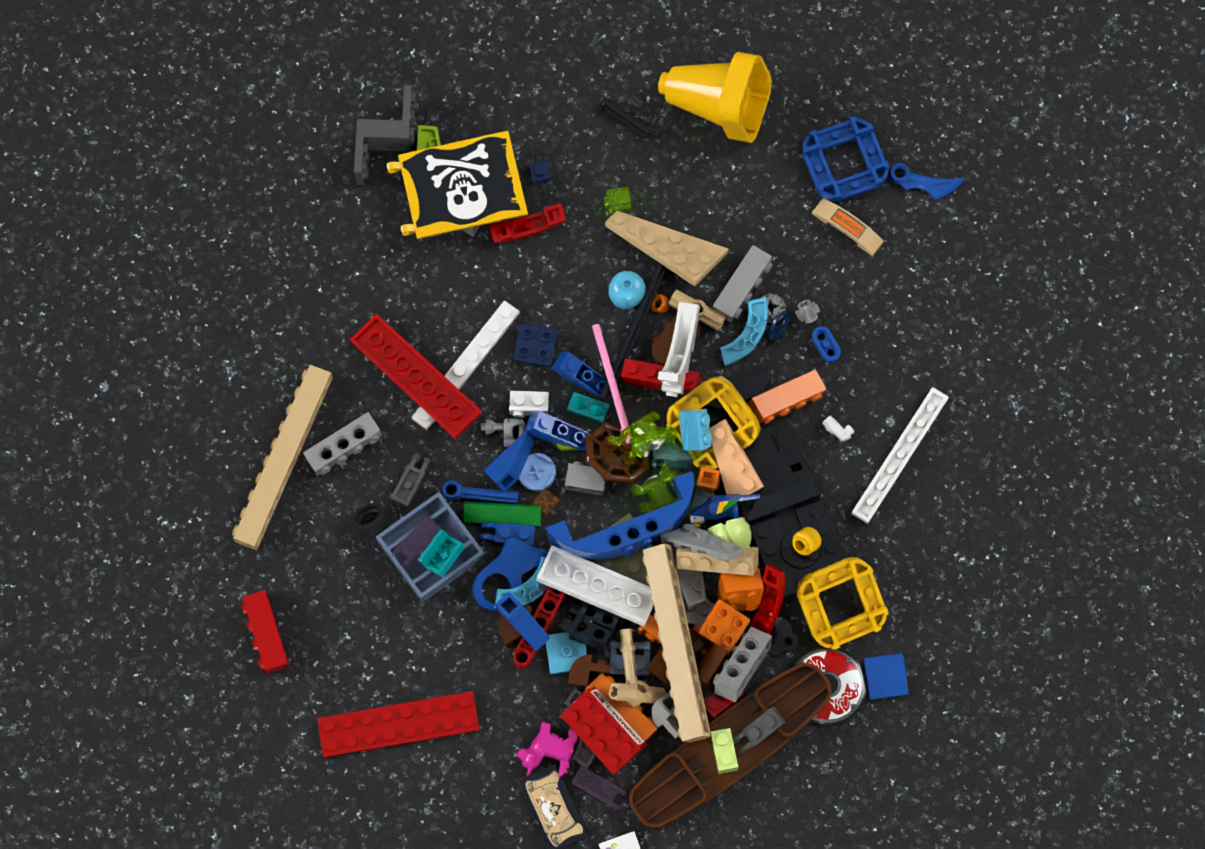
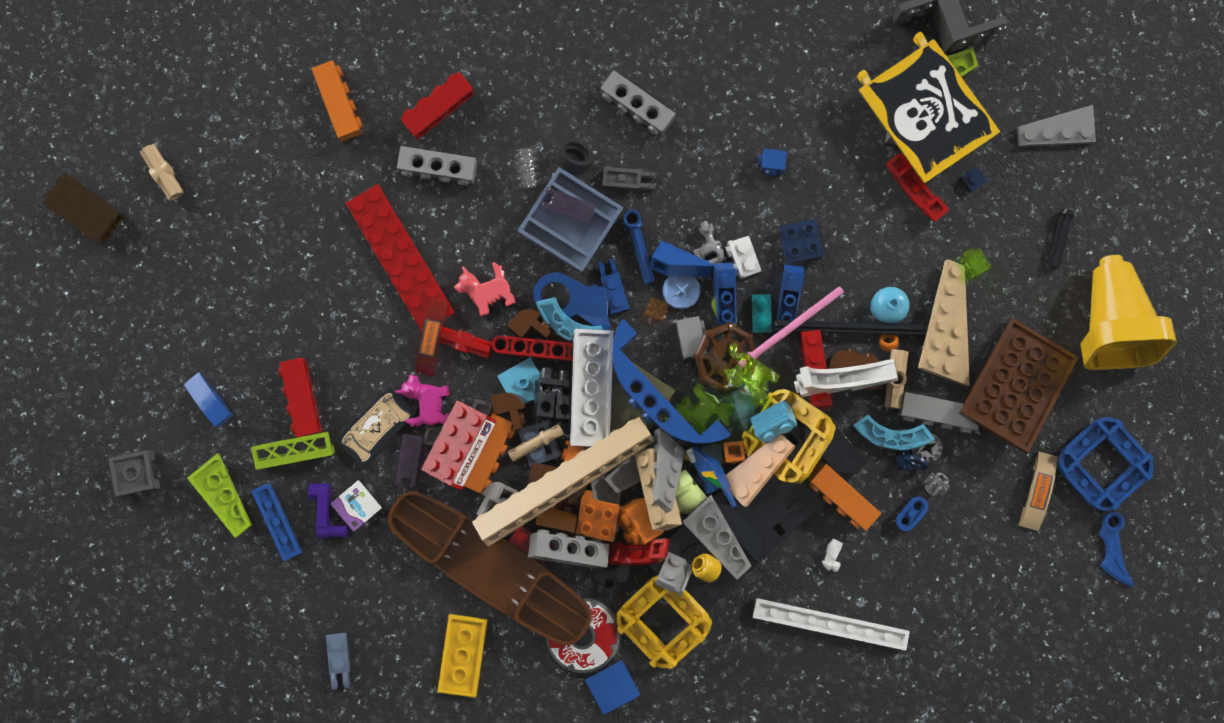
camera: 70 degrees right, 10 degrees up
(219, 726) = (336, 100): none -> orange brick
(282, 457) = (604, 54): tan brick -> none
(335, 625) = (409, 156): none -> light grey brick
(362, 569) = (526, 168): none -> clear piece
(416, 376) = (726, 143): red plate -> none
(441, 553) = (563, 232): teal bracket -> none
(450, 342) = (772, 161): none -> blue brick
(467, 652) = (487, 292): none -> coral animal
(474, 353) = (758, 185): white plate -> none
(488, 720) = (430, 336): none -> clear red slope
(502, 513) = (629, 274): green tile -> none
(504, 693) = (465, 342): none -> red piece
(522, 621) = (530, 331): blue slope -> none
(525, 79) = (1062, 129): none -> light grey wing
(636, 693) = (504, 462): tan piece -> none
(724, 751) = (481, 563): yellowish green brick -> none
(745, 205) = (1018, 385): none -> reddish brown plate
(760, 729) = (513, 589): dark grey hinge -> none
(777, 522) = (714, 532): none -> light grey wing
(801, 571) = (674, 574): none -> light grey plate
(804, 807) = (462, 655): none -> yellow tile

